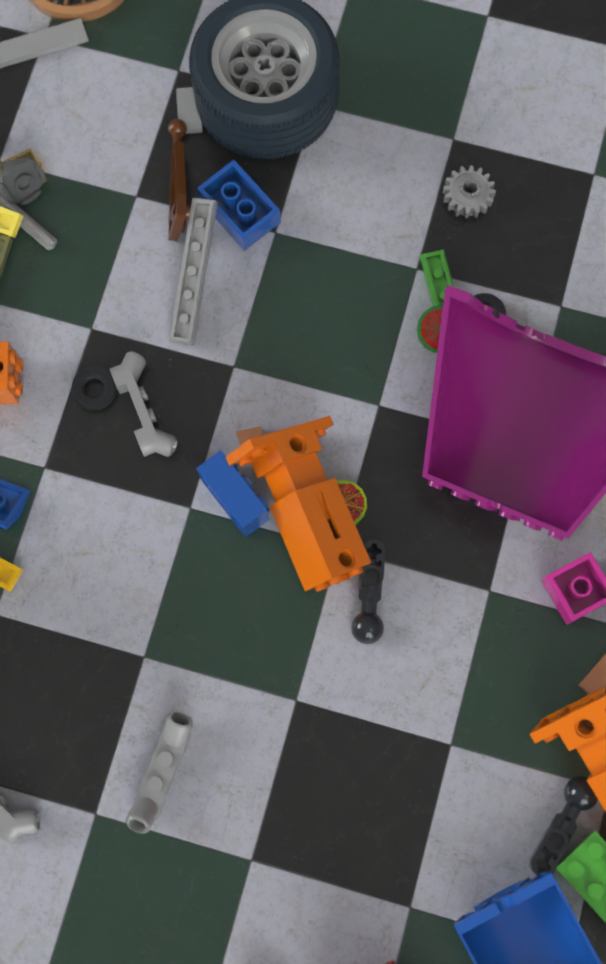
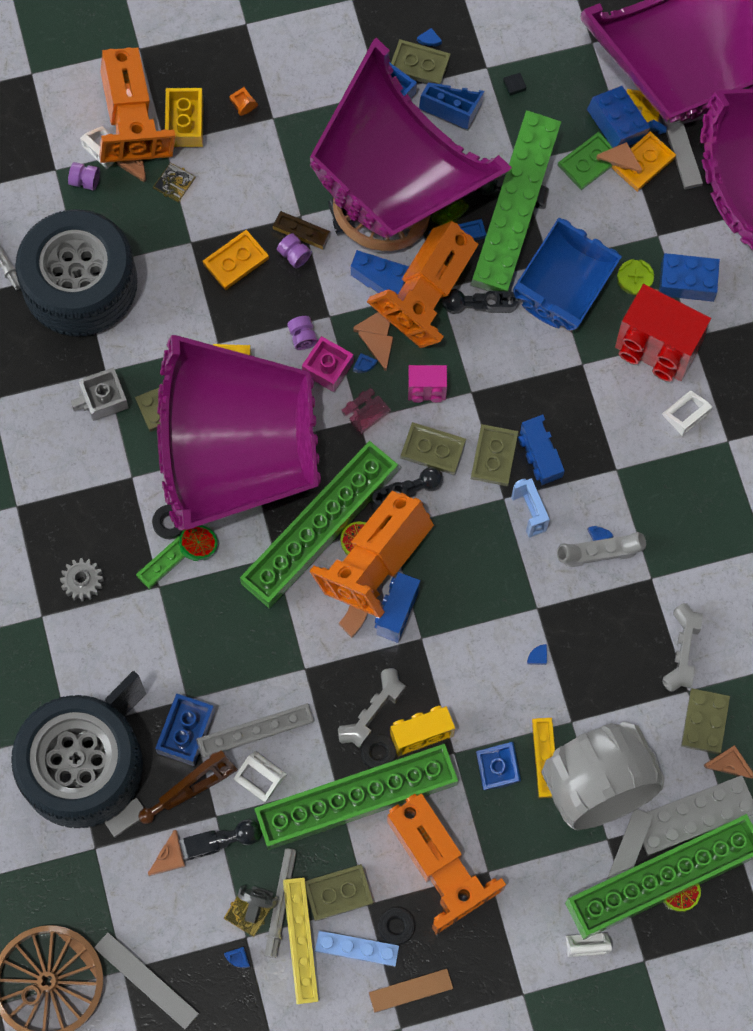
camera: 125 degrees left, 5 degrees down
(57, 335) = (355, 796): none -> bright green brick
(81, 438) = (422, 730): none -> yellow brick
(88, 622) = (538, 655): none -> blue tile
(109, 172) = (211, 842): none -> black beam
(123, 131) = (169, 857): none -> nougat tile
(149, 263) = (264, 767): none -> white tile
(183, 785) = (599, 533): none -> blue tile
(233, 719) = (540, 519): none -> light blue window
(303, 151) = (126, 694): none -> black tile
(323, 777) = (540, 450): none -> blue wedge
(353, 720) = (494, 455): none -> olive plate
(385, 469) = (318, 524): none -> bright green brick
(403, 652) = (433, 448): none -> olive plate
(487, 690) = (427, 383): none -> dark pink brick
(489, 605) = (369, 414): none -> clear pink plate
(557, 637) = (364, 364): none -> blue tile
(570, 668) = (378, 345): none -> nougat tile

